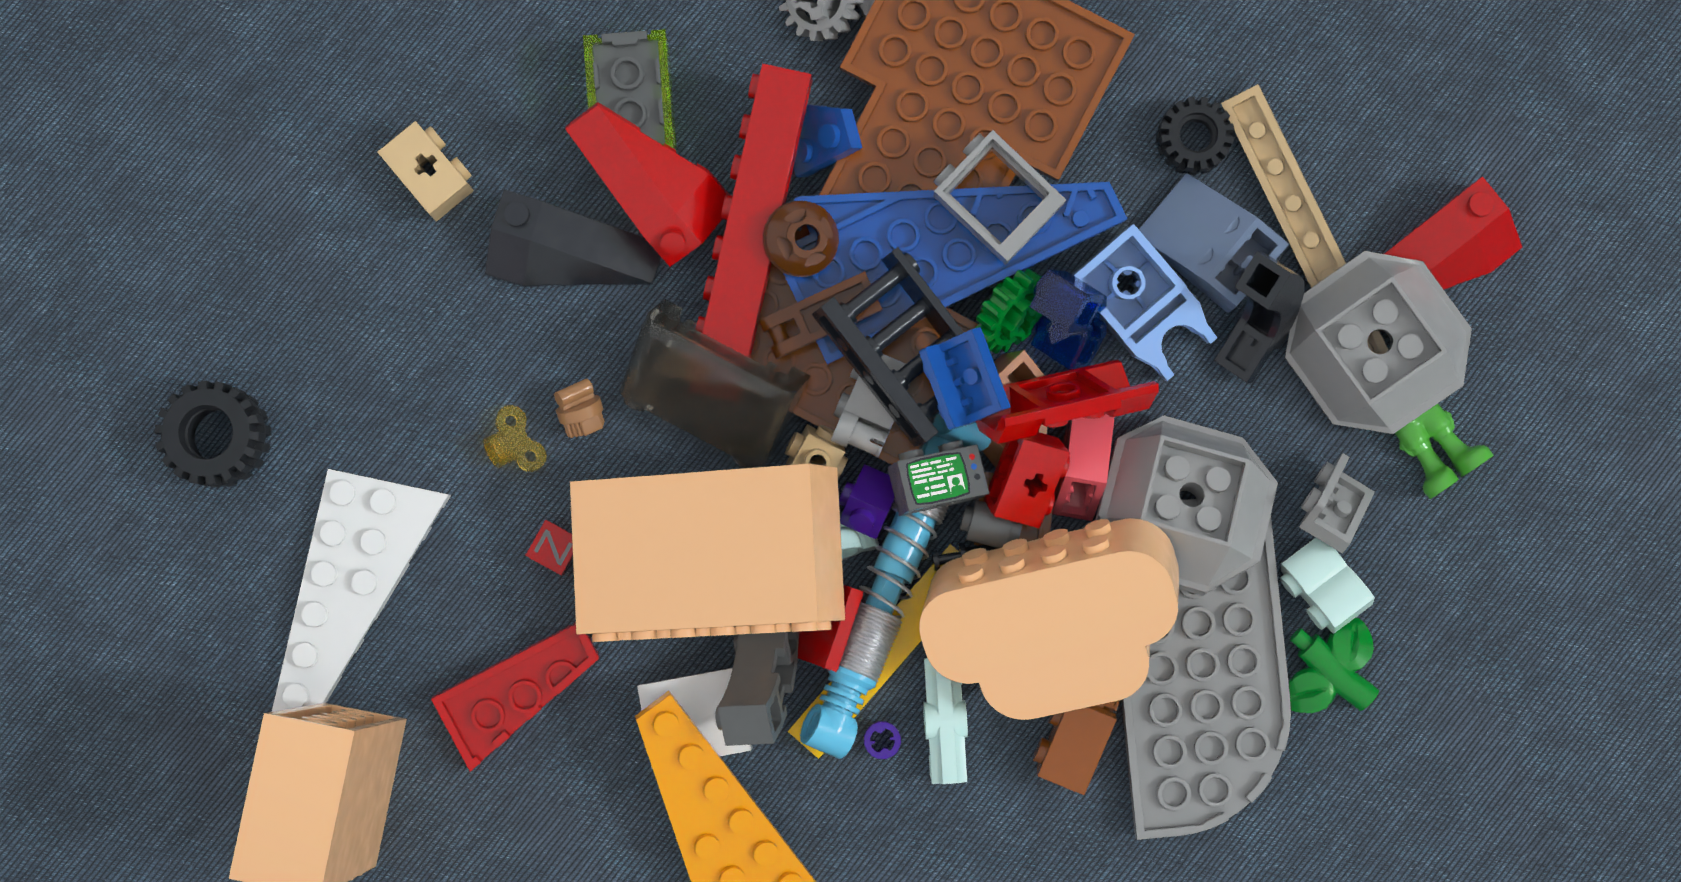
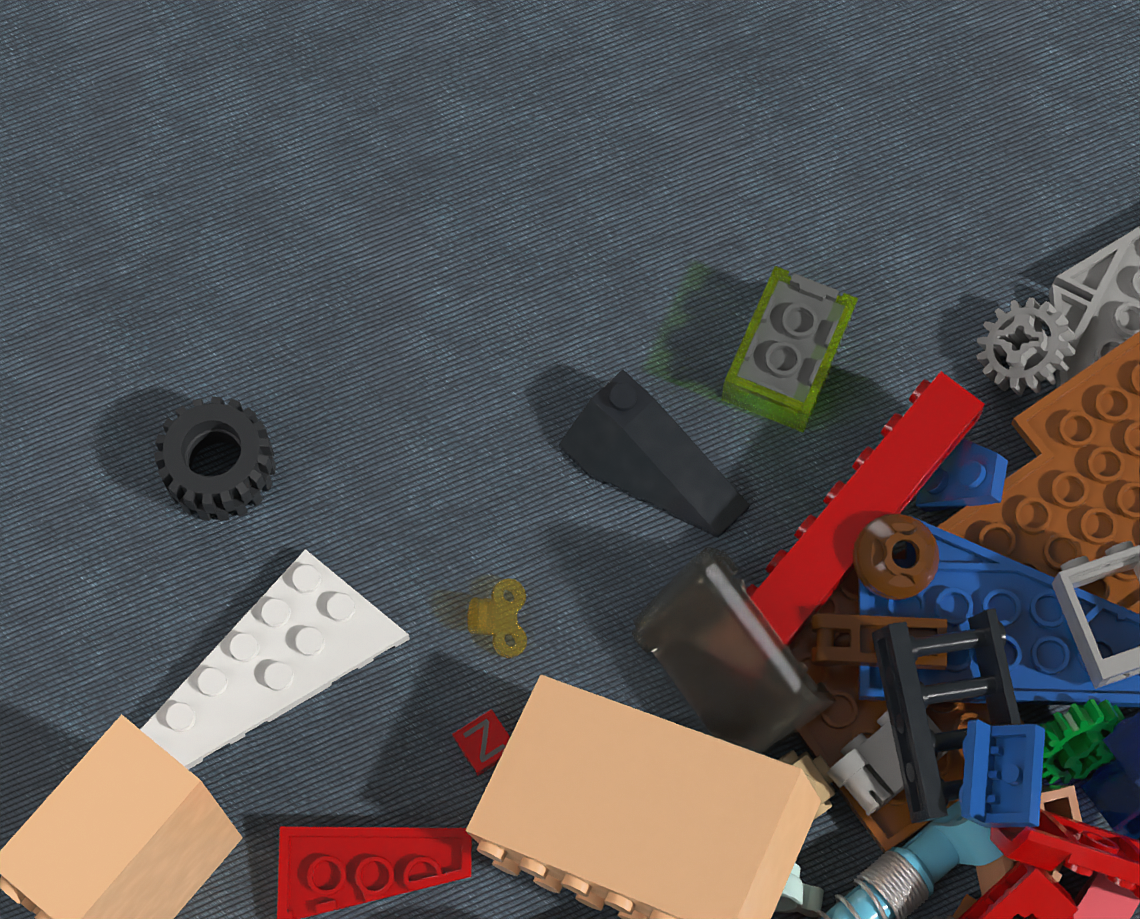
camera: 30 degrees right, 15 degrees down
(410, 152) = (555, 344): tan brick -> none
(579, 409) = (583, 617): medium nougat piece -> none
(658, 189) = (775, 443): red wedge -> none
(867, 502) = (833, 860): dark purple brick -> none
(938, 478) = (921, 868): brick -> none

